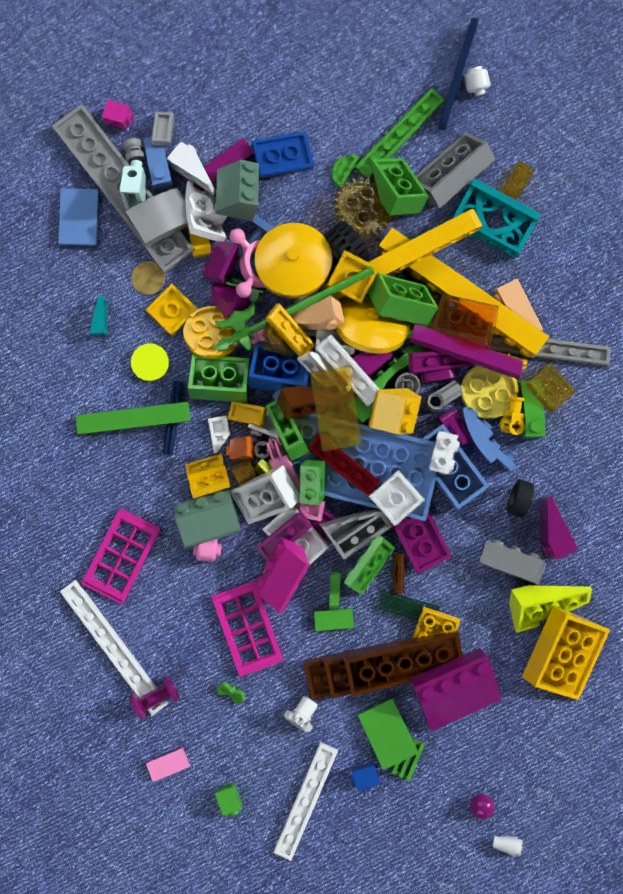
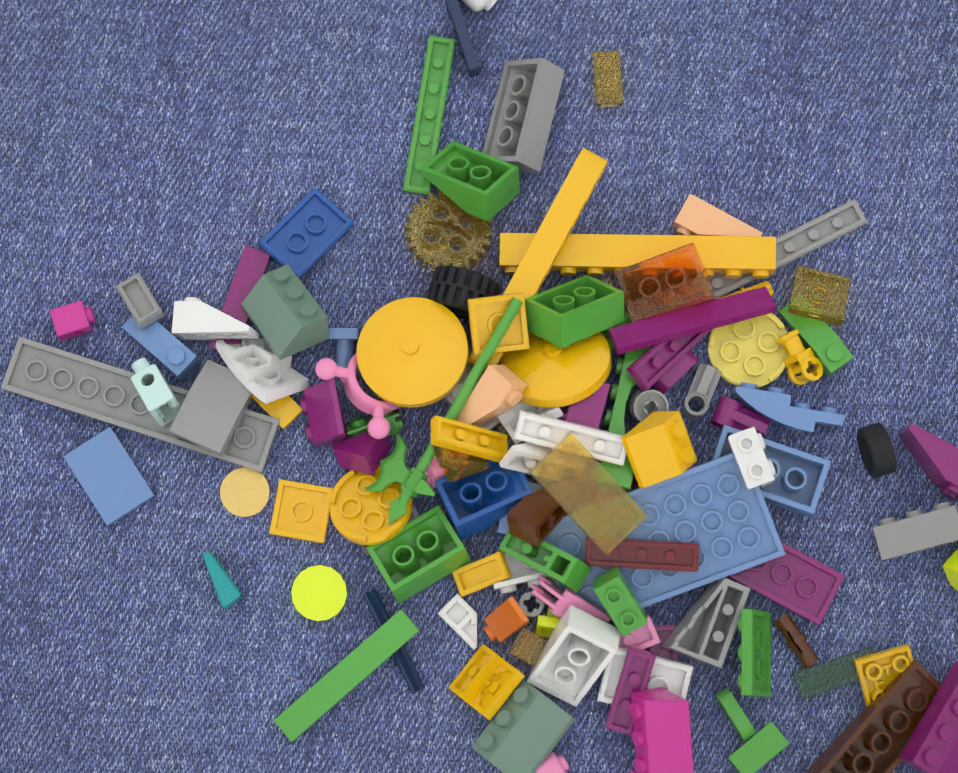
camera: 35 degrees left, 5 degrees down
(133, 150) = (122, 350): light grey wheel -> none
(343, 168) = (390, 202): bright green tile -> none
(396, 498) = (732, 550): white tile -> none
(520, 211) = (640, 113): teal fence -> none

